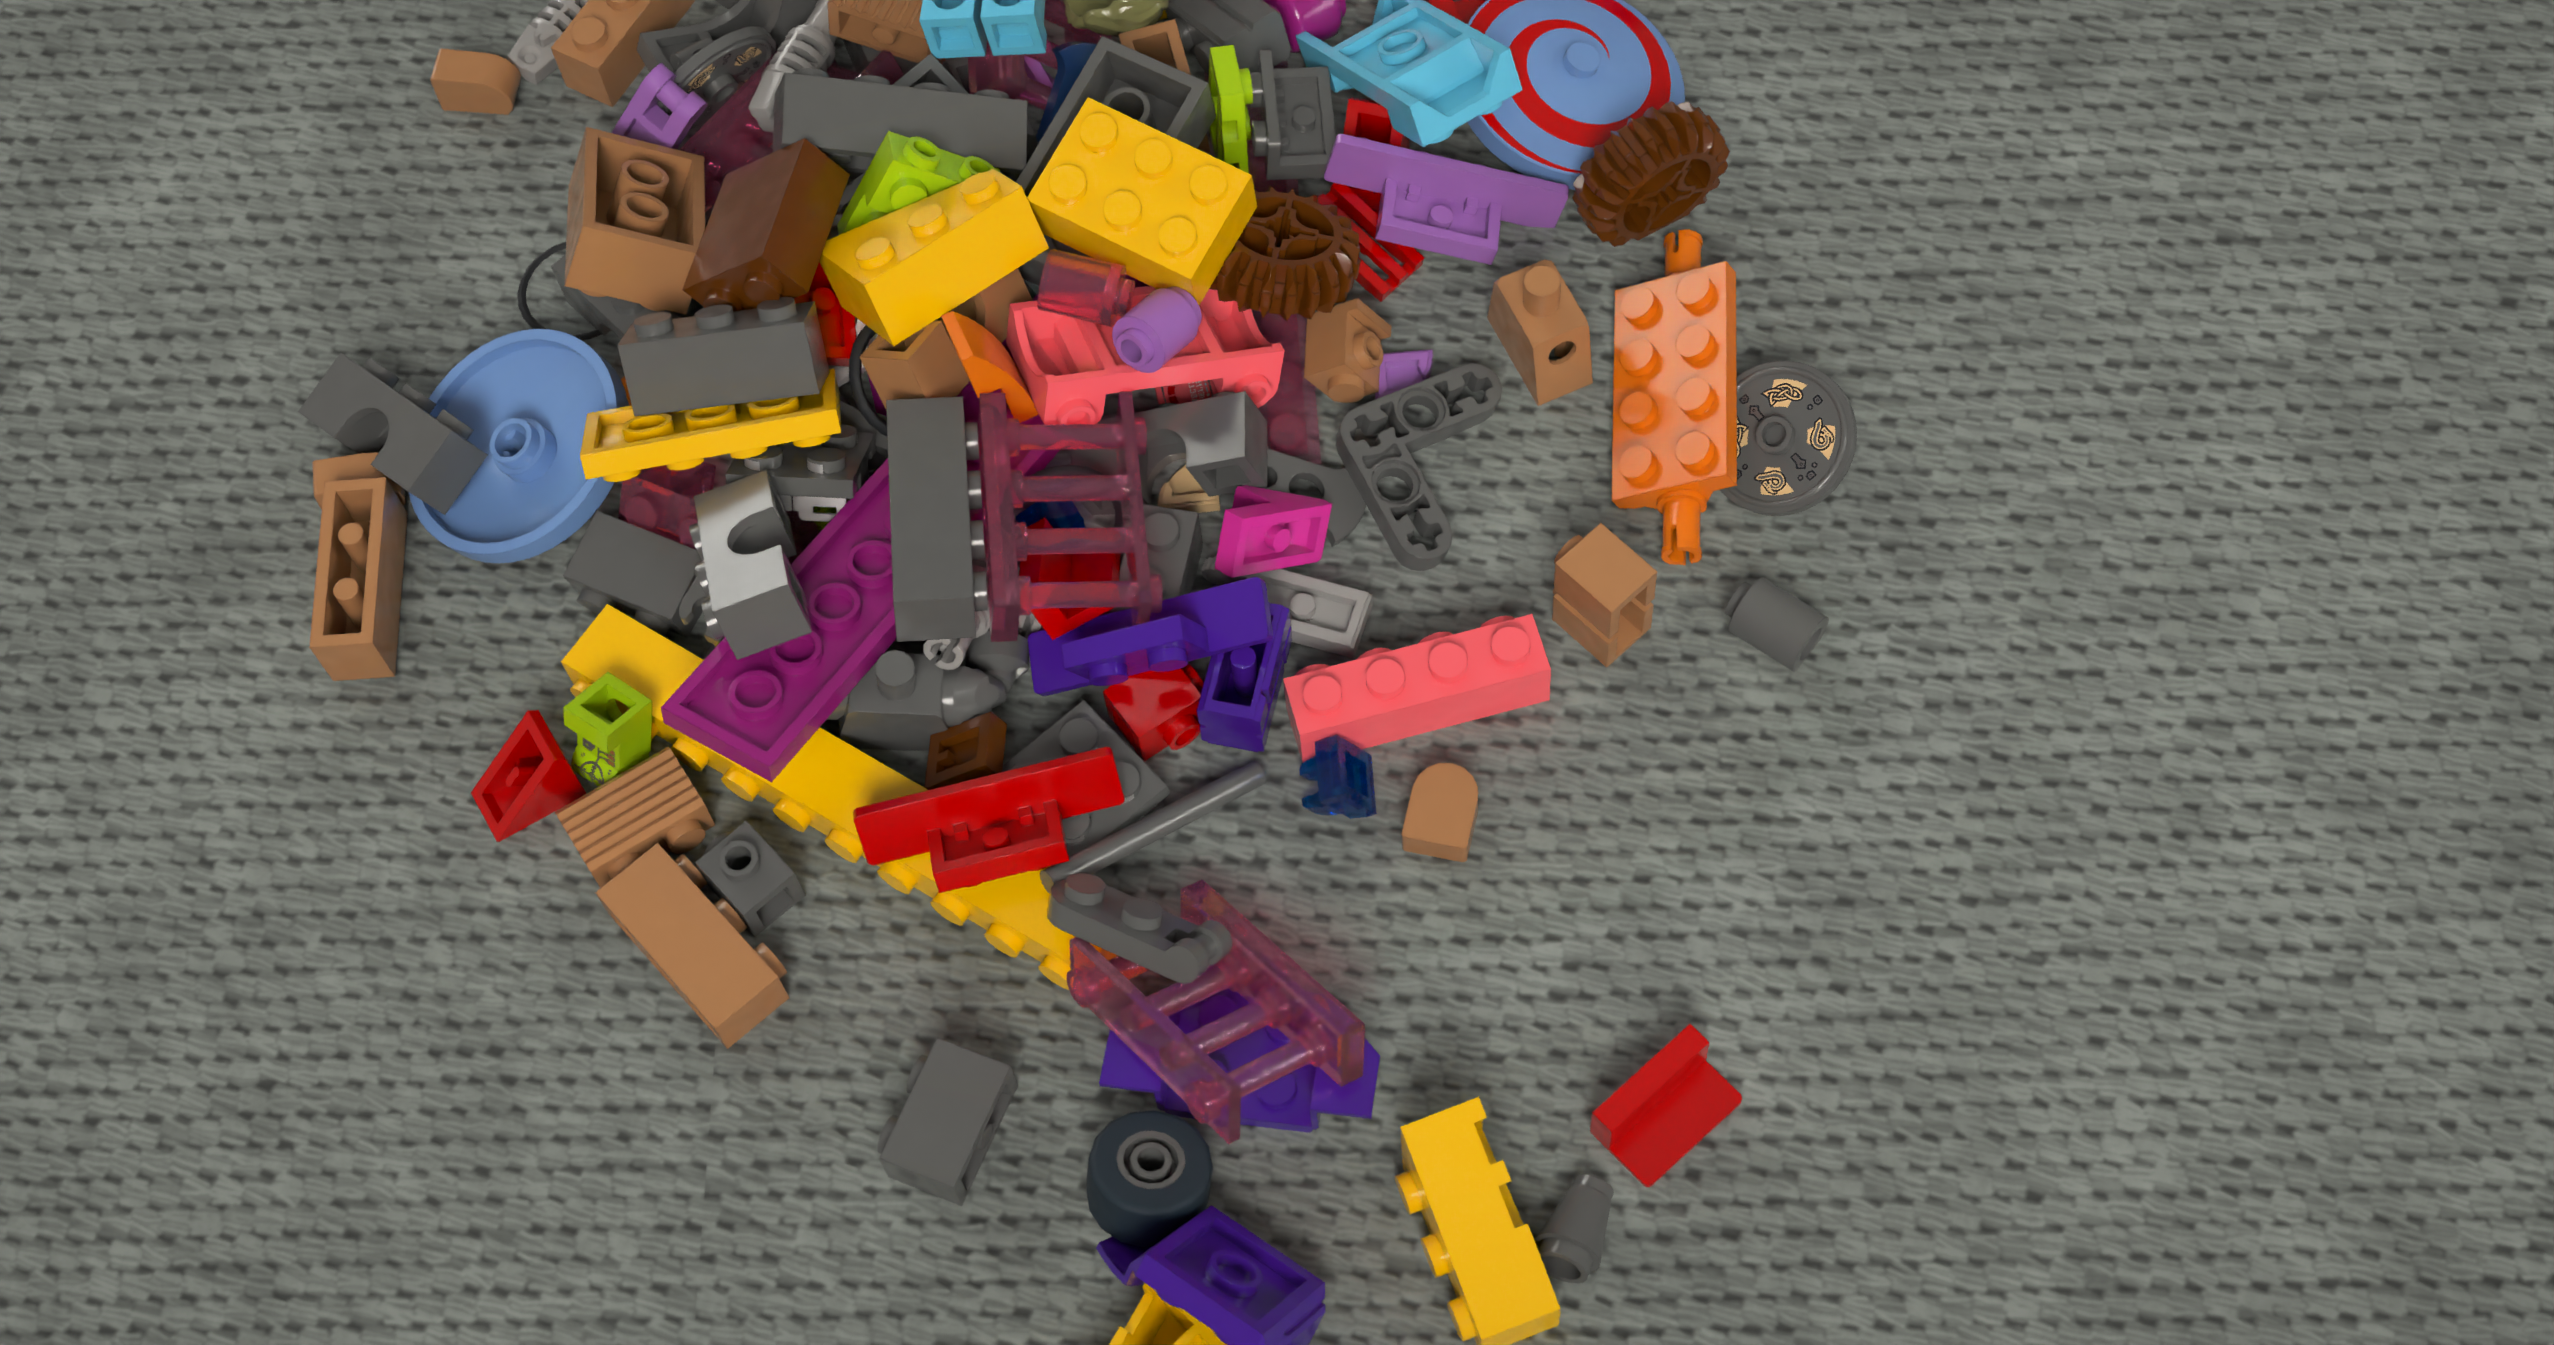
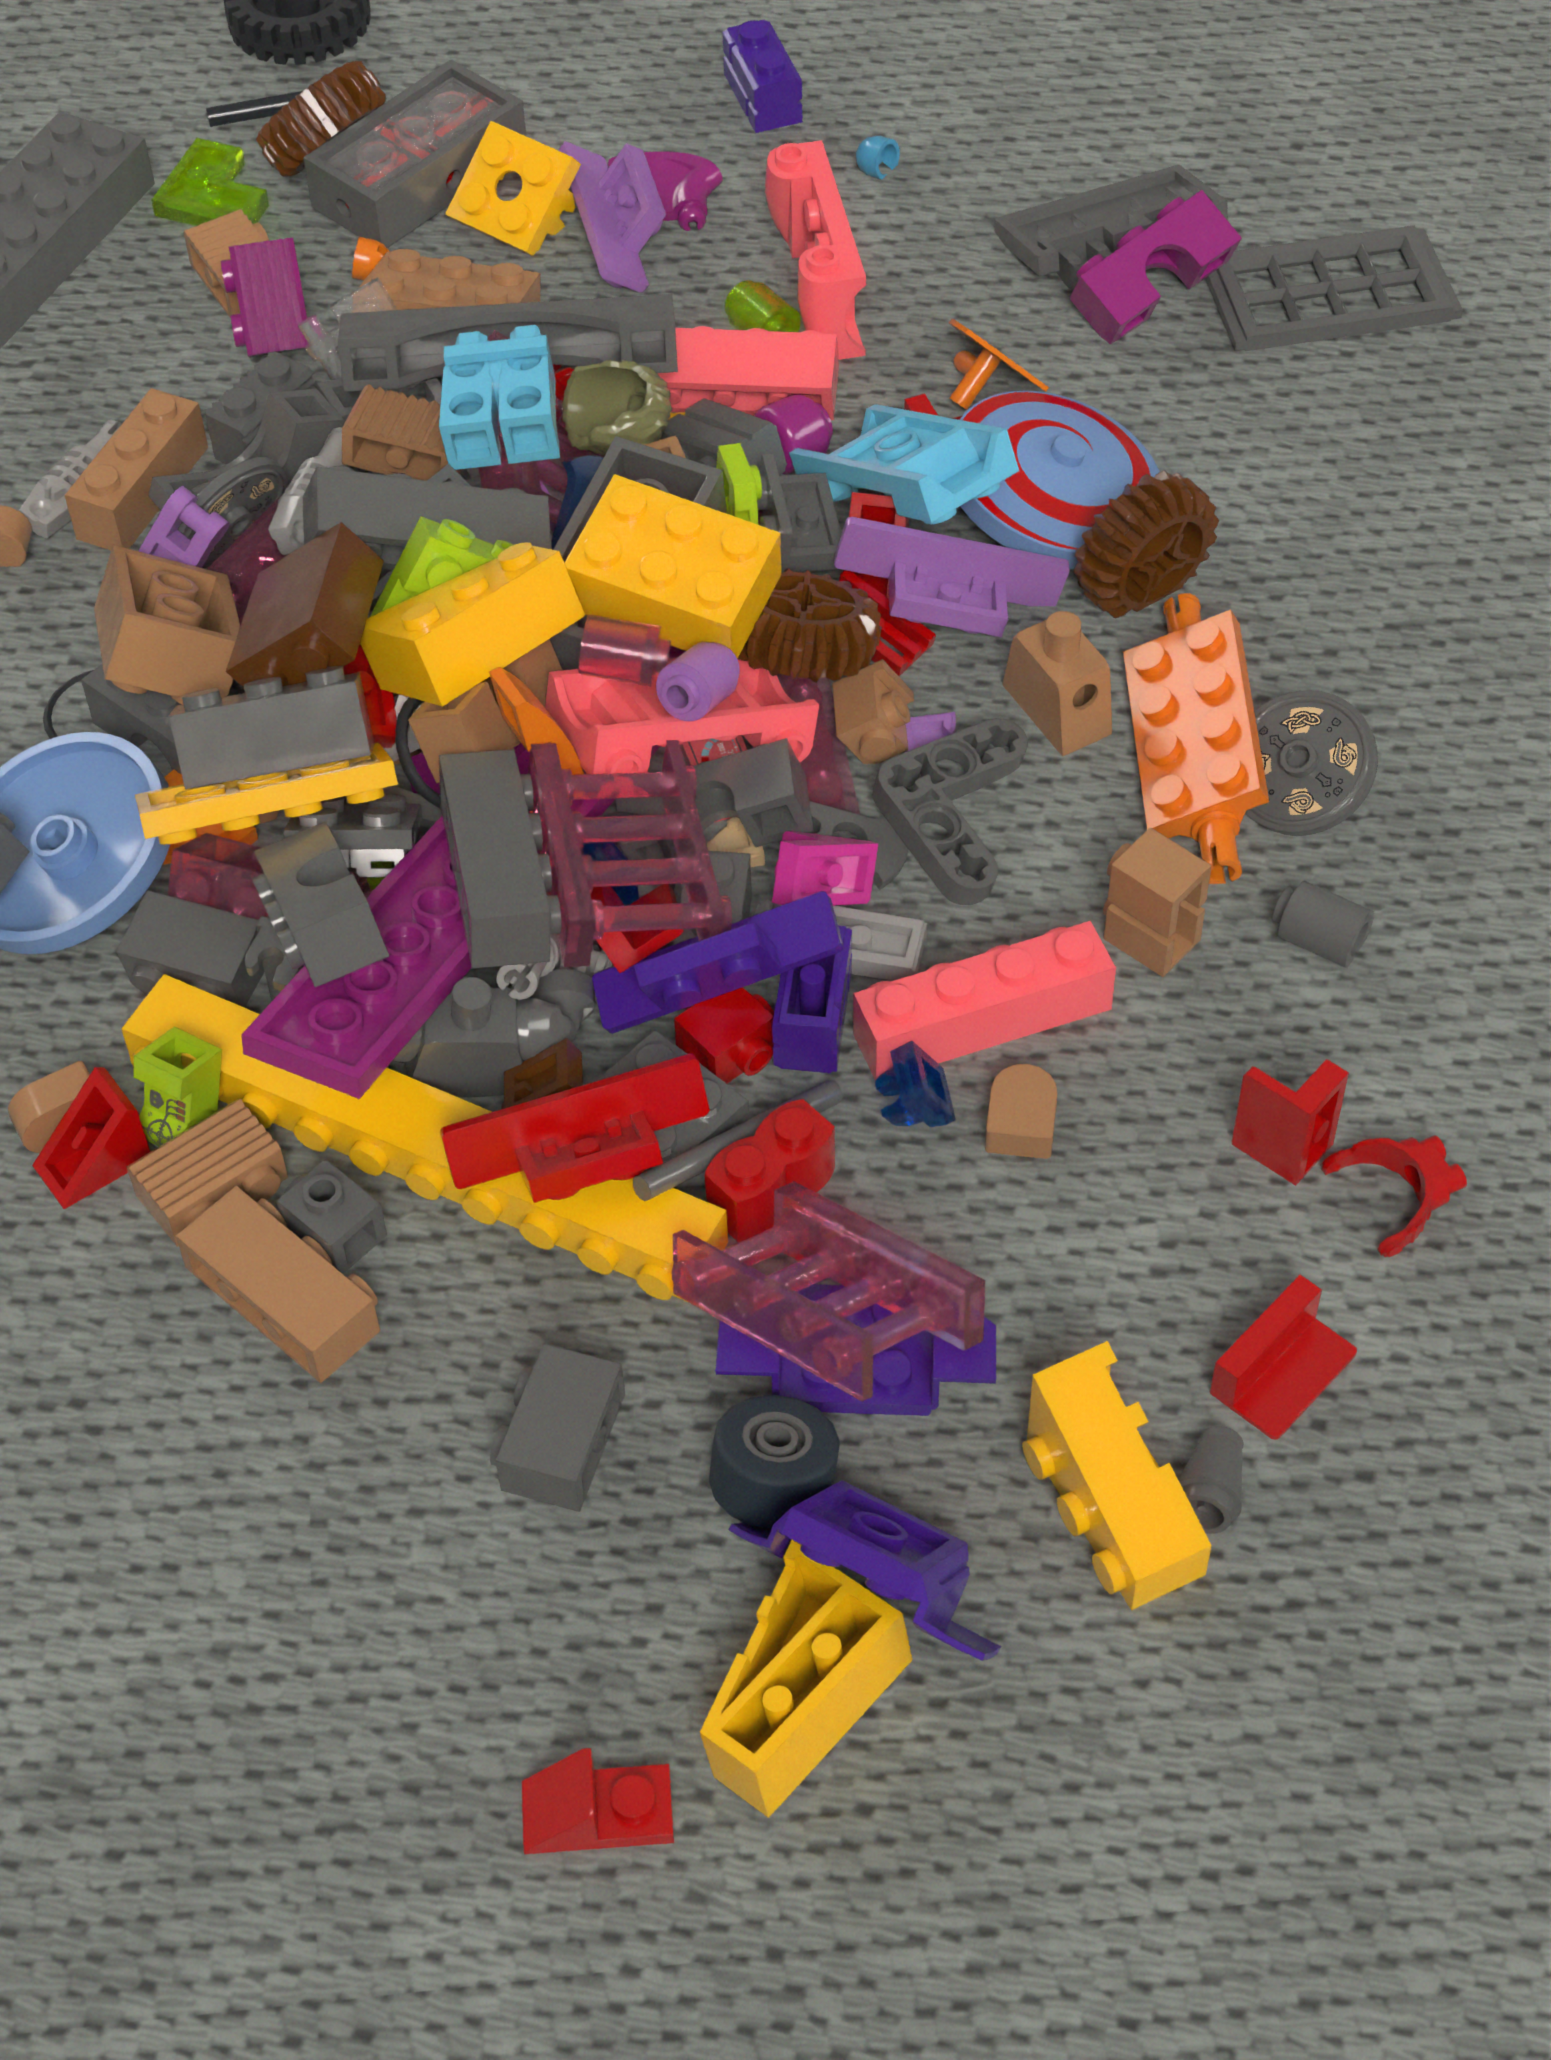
camera: 10 degrees left, 10 degrees down
(483, 734) = (43, 1104): none -> medium nougat piece
(1136, 928) = (738, 1218): dark grey plate -> none
(1199, 843) = (786, 1148): none -> red brick
(1708, 864) = (1288, 1127): none -> red panel
(1836, 904) = (1419, 1164): none -> red helmet

